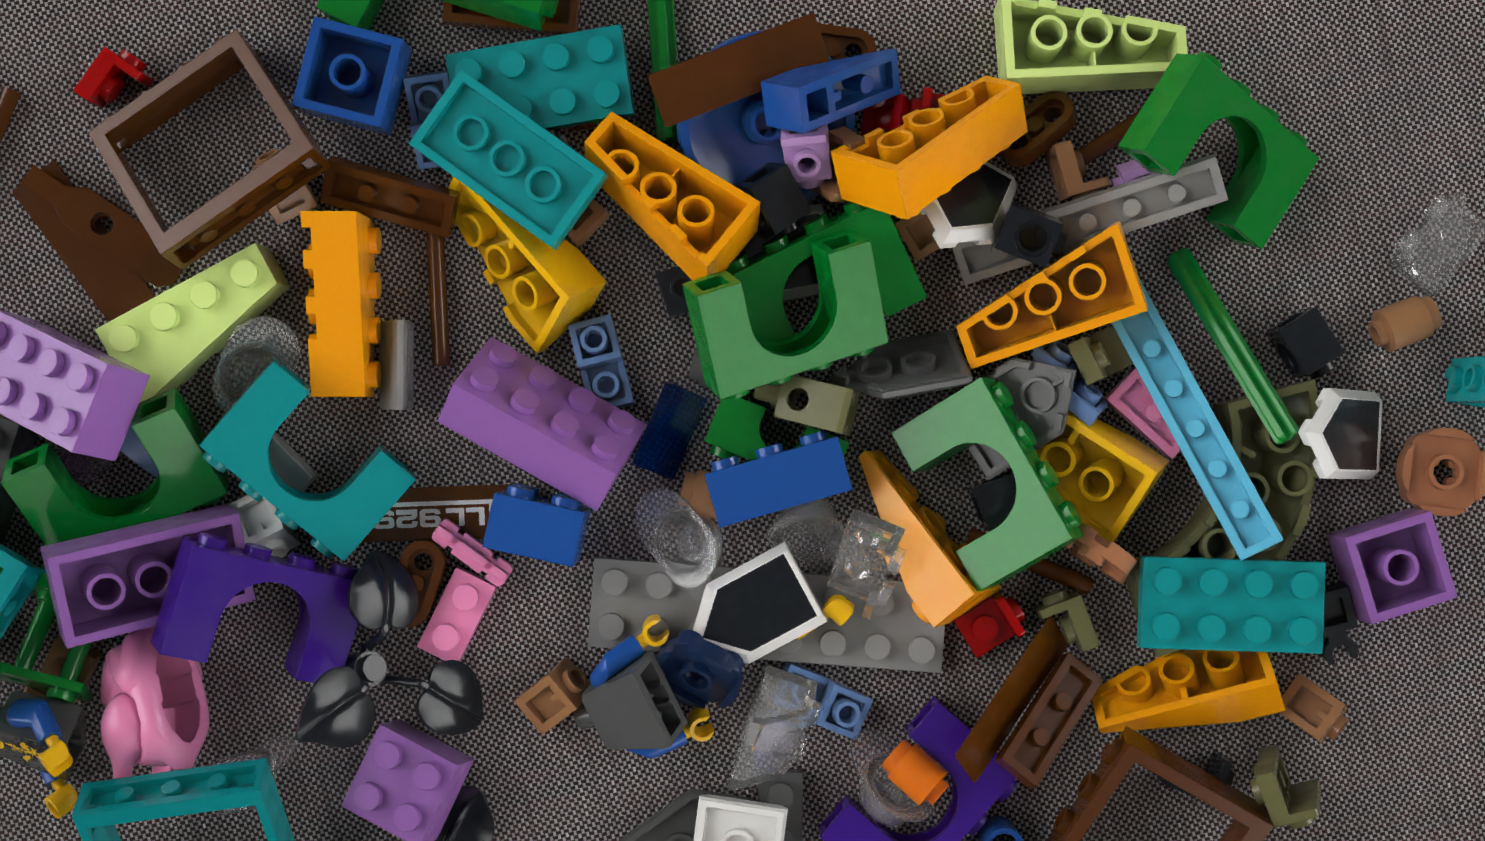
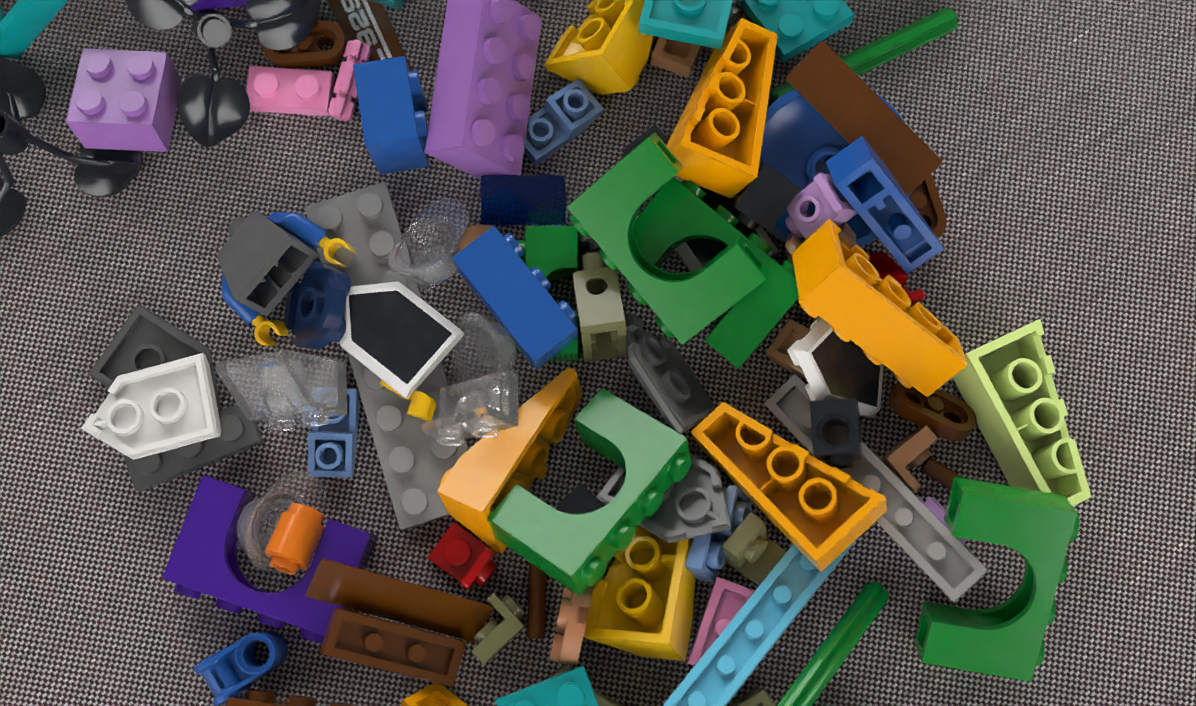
camera: 65 degrees right, 10 degrees down
(553, 695) = (248, 192): medium nougat bracket -> none

